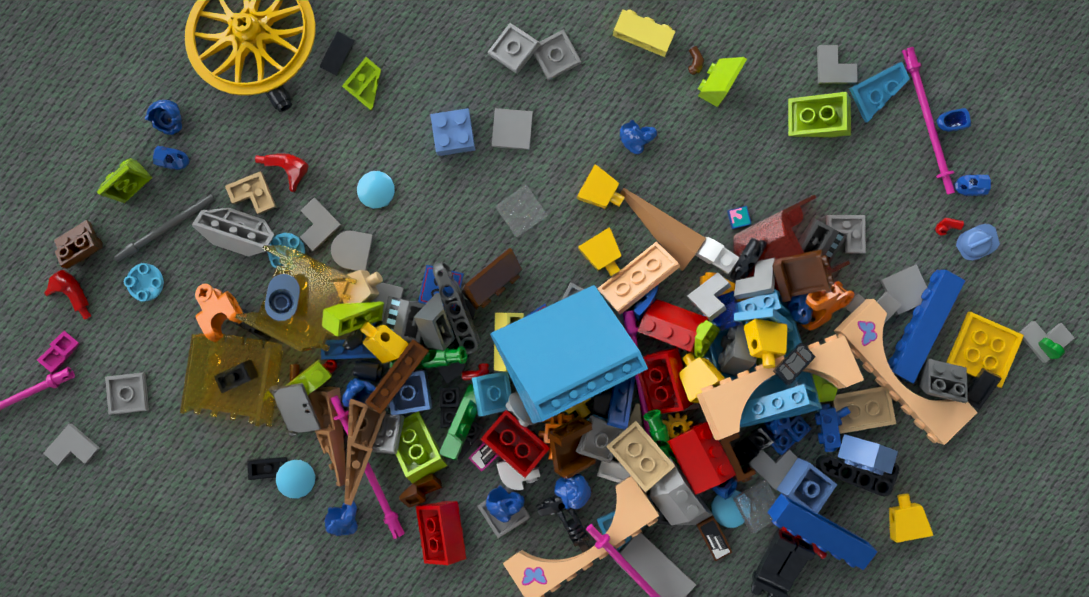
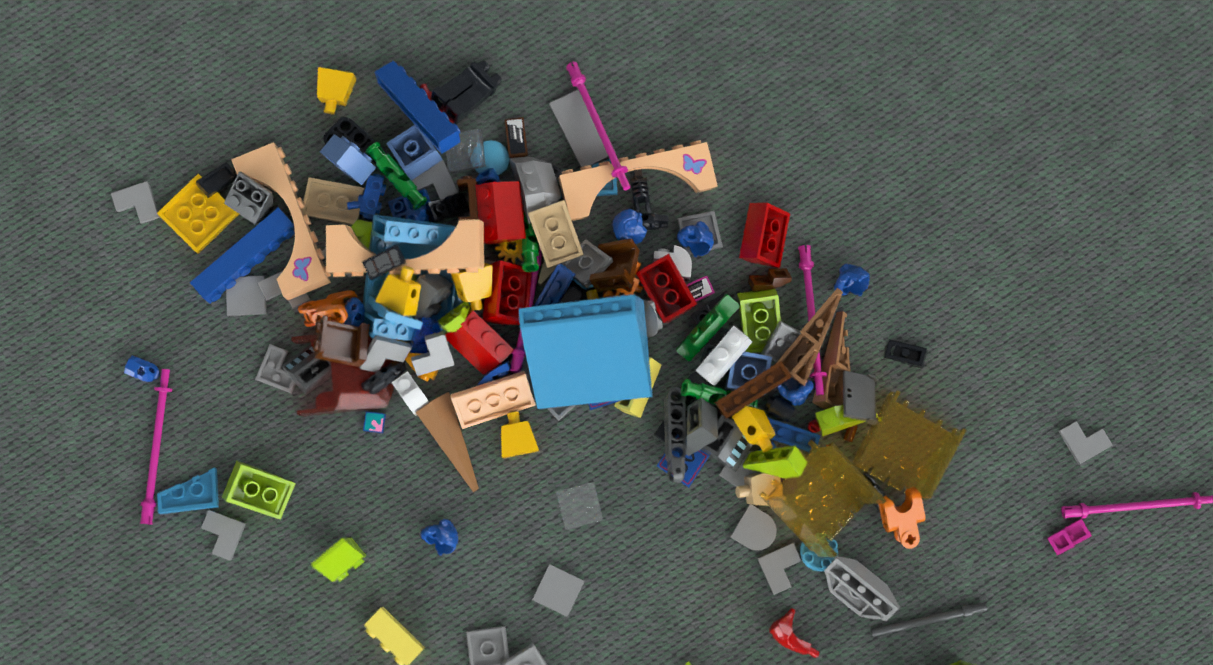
camera: 165 degrees left, 5 degrees down
(66, 283) = (1041, 600): red animal -> none
(77, 245) = (1018, 633): reddish brown brick -> none
(127, 393) = (1016, 472): light grey tile -> none
(144, 282) = (965, 573): medium azure dish -> none
(236, 376) = (906, 449): black slope -> none
(254, 188) = (828, 625): tan plate -> none
(282, 297) = (836, 505): medium blue piece -> none
(295, 479) = (882, 333): medium azure dish -> none
(354, 341) = (783, 439): black arm -> none
(375, 189) = (711, 580): medium azure dish -> none
(436, 398) = (724, 356): none -> white brick
(452, 132) = (616, 607): medium blue brick -> none
(483, 370) = (678, 366): red arm -> none
(491, 392) = (671, 343): medium azure plate -> none
(492, 279) = (631, 448): reddish brown slope -> none
(600, 189) = (496, 498): yellow torso -> none
(613, 471) = (586, 231): white tile -> none
(698, 61) = (352, 589): reddish brown arm -> none
(816, 457) = (397, 177): none -> green piece
(948, 223) = (181, 342): red arm -> none
(954, 120) = (133, 437): rock -> none
(978, 242) = (159, 315): medium blue piece -> none
(1051, 349) = (138, 191): green tile -> none

